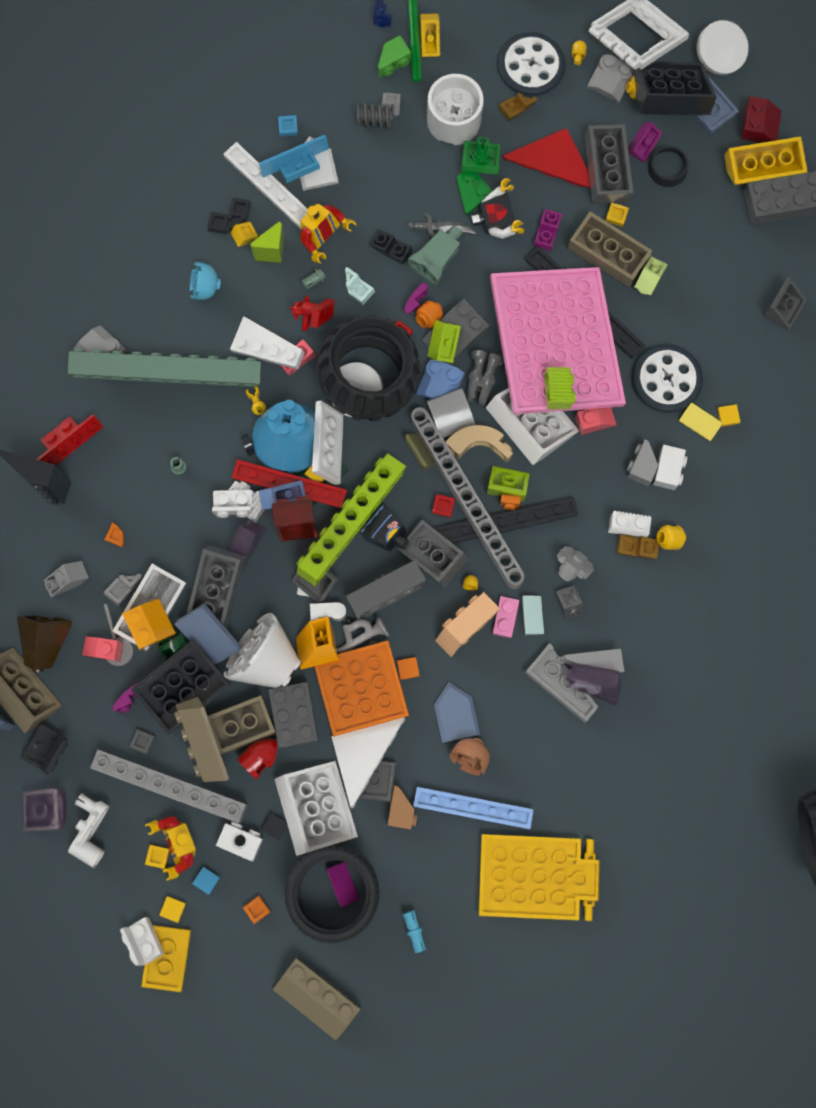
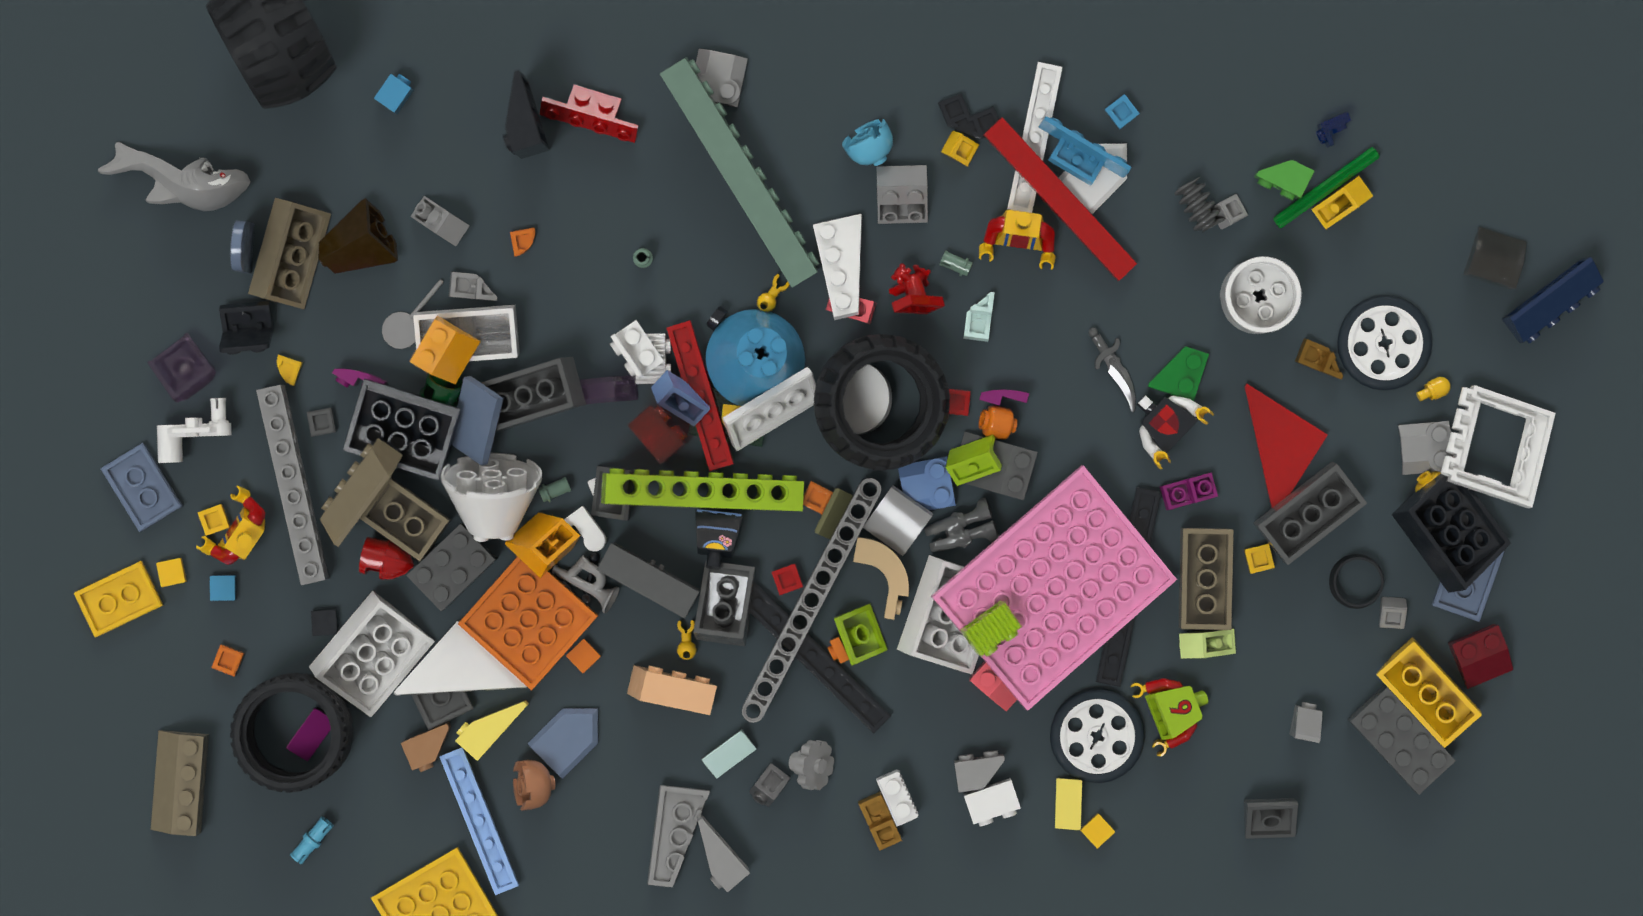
camera: 55 degrees right, 10 degrees up
(93, 740) = (288, 369): none -> yellow tile
(103, 648) = (390, 313): coral slope -> none
(103, 892) = (141, 487): none -> sand blue tile
(142, 942) = (117, 564): white bracket -> none
(228, 841) = (279, 611): white brick -> none
(248, 283) = (902, 194): none -> light grey slope
(269, 245) = (961, 192): lime slope -> none
(287, 617) = (554, 489): none -> sand green pin
(315, 191) = (1060, 199): none -> red tile
(390, 247) = (1052, 325): black slope -> none
(403, 454) = (816, 497): none -> orange tile
(416, 764) = (486, 730): none -> light yellow slope
(436, 255) = (1074, 385): sand green piece -> none
(444, 597) = (686, 644): none -> yellow arm
(470, 583) = (721, 663): yellow hinge -> none
(481, 156) = (1232, 357): green plate -> none
(506, 617) = (708, 726): bright pink plate -> none
(595, 682) = (695, 868): clear purple slope -> none
(644, 141) = (1370, 534): magenta slope -> none
(671, 537) = (912, 852): yellow head -> none
(681, 319) = (1173, 710): none -> lime torso
(701, 158) = (1392, 612): none -> light grey slope
(722, 47) = (1545, 555): white piece -> none
(740, 245) = (1306, 722): none -> light grey slope

